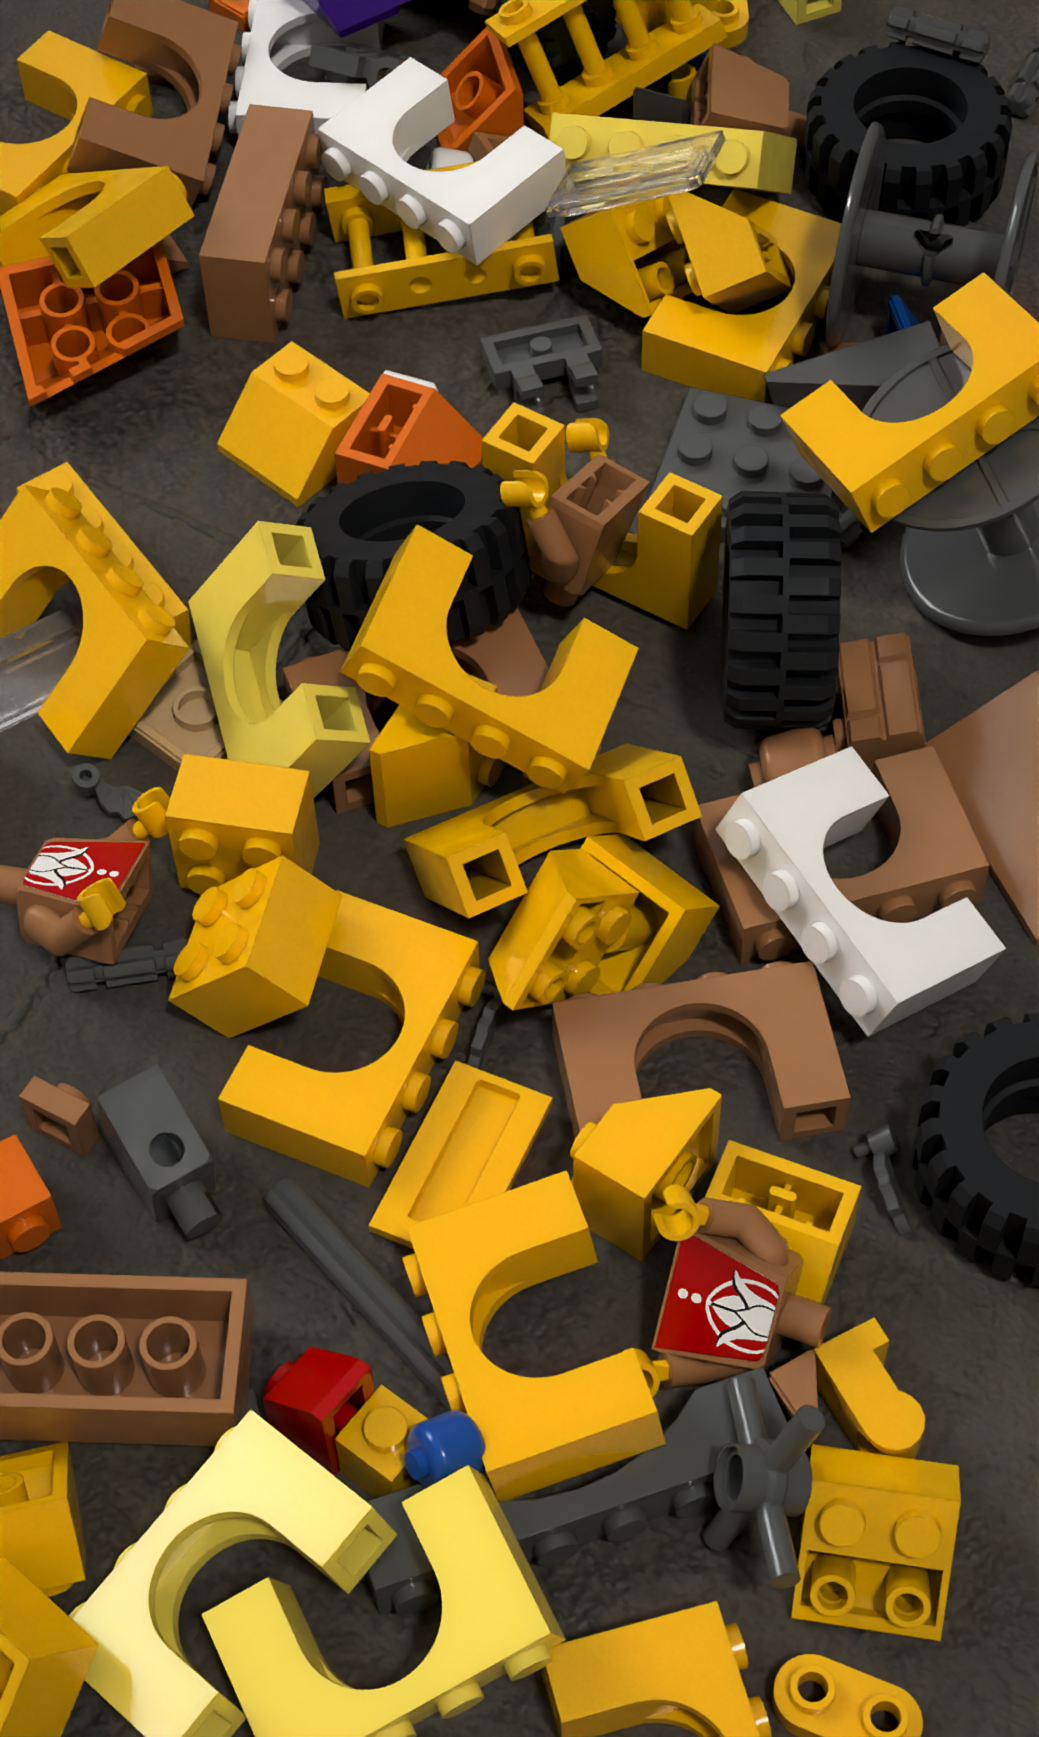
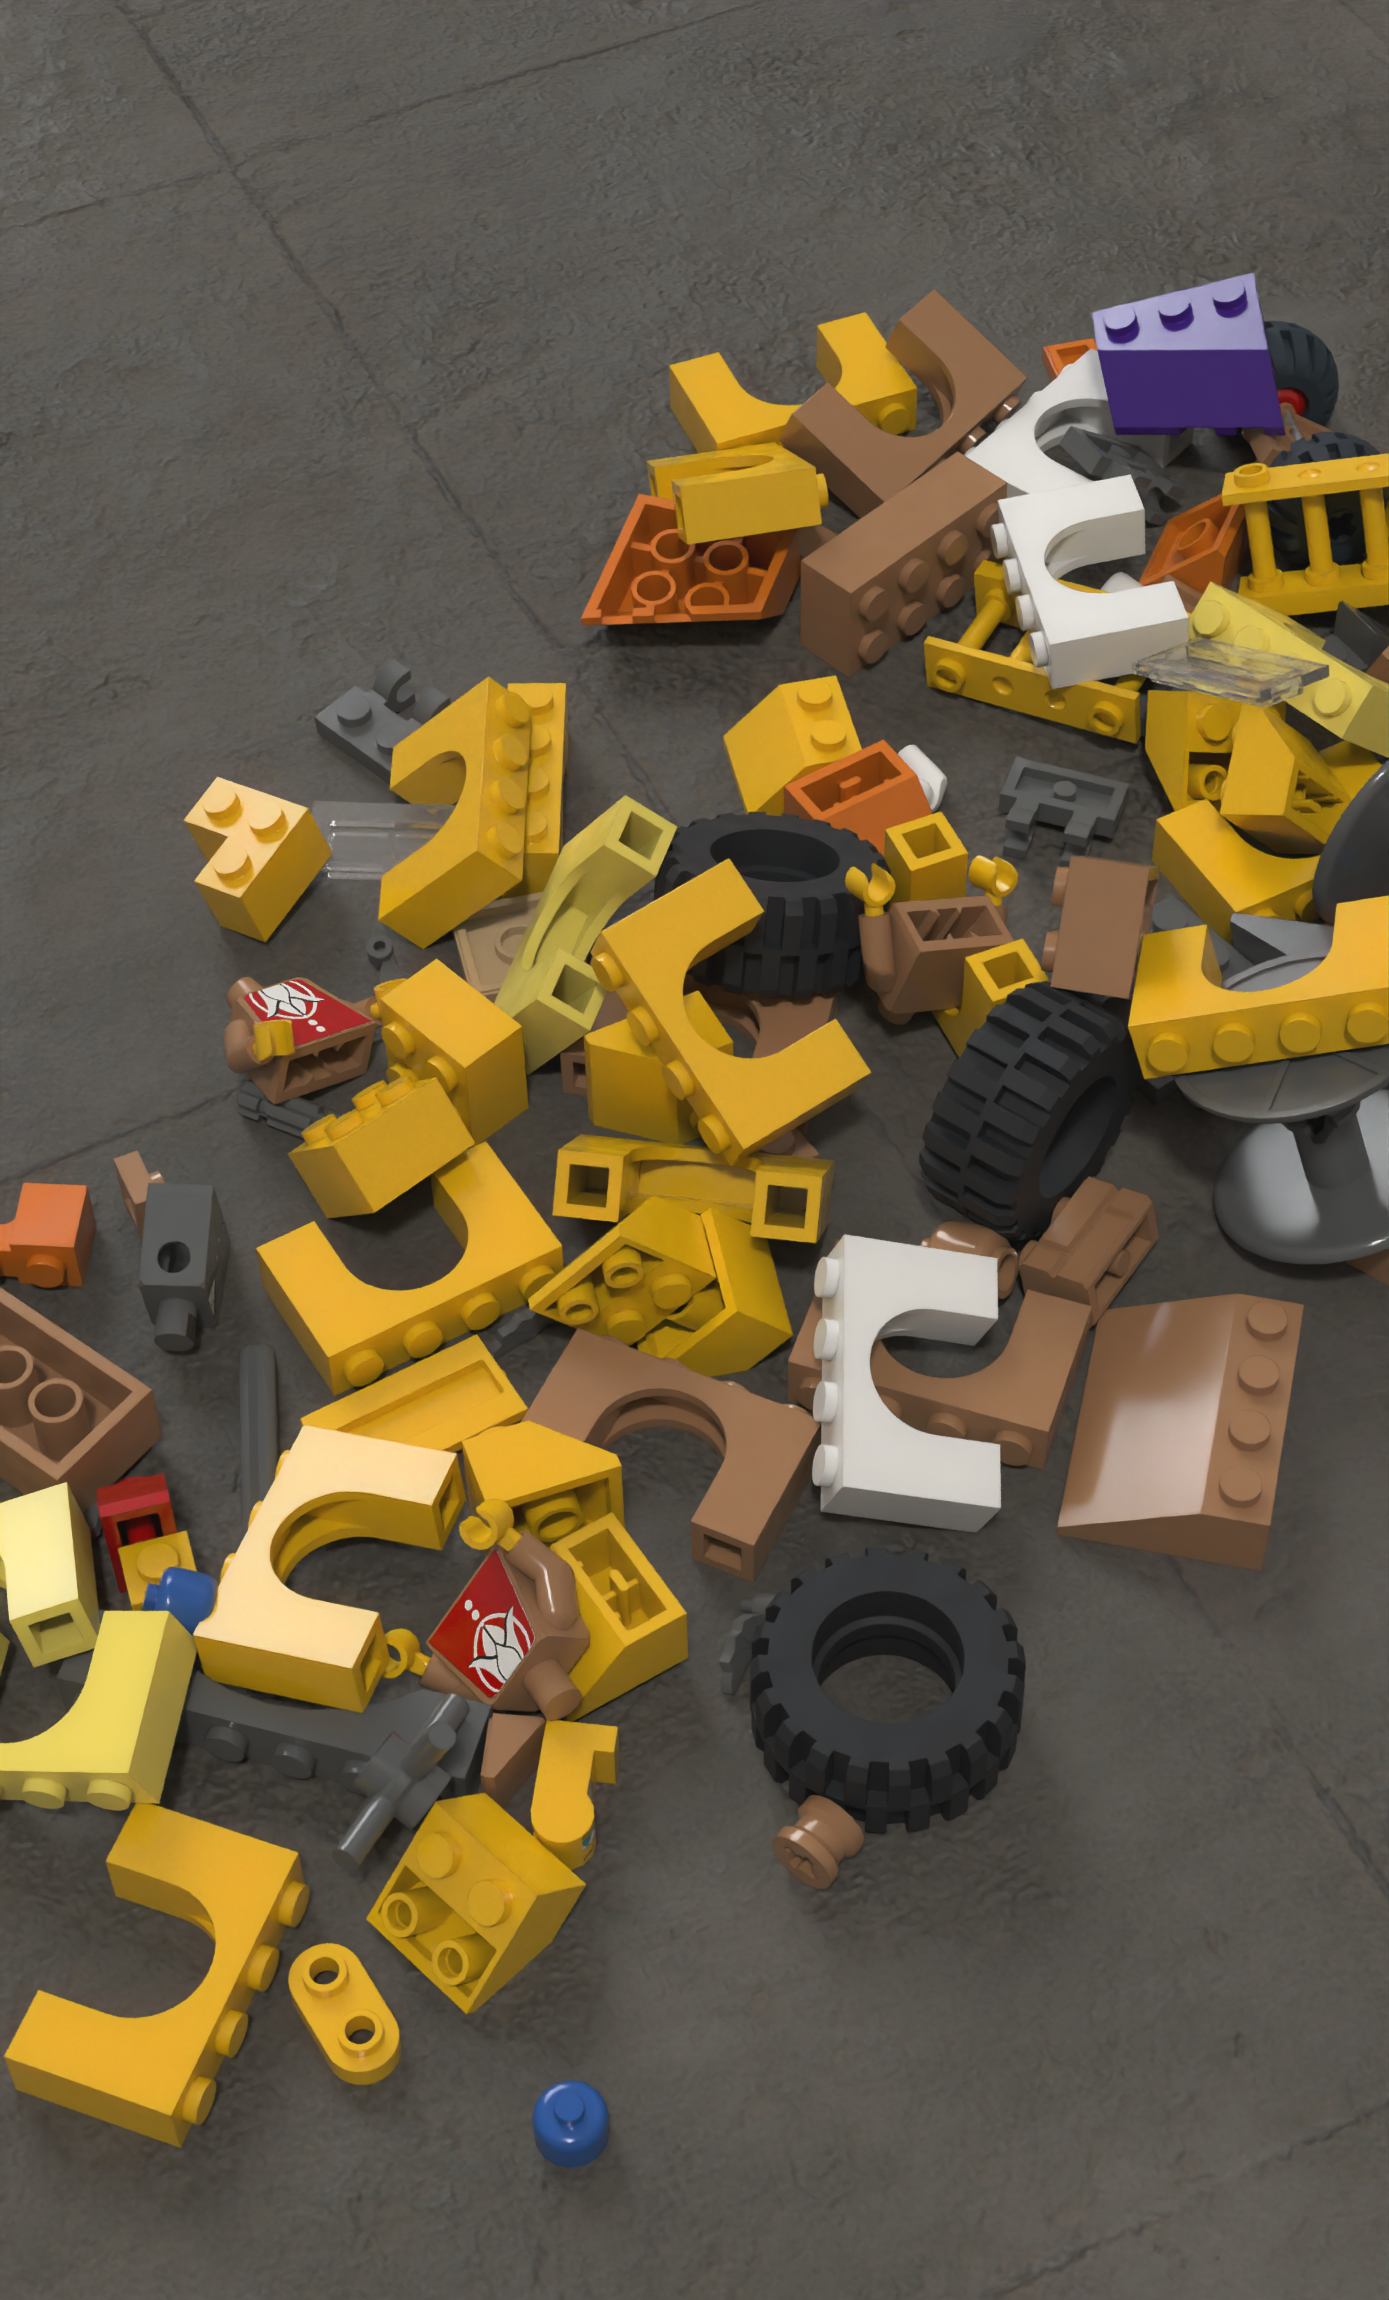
camera: 35 degrees right, 5 degrees down
(732, 424) = (1101, 925): none -> medium nougat brick

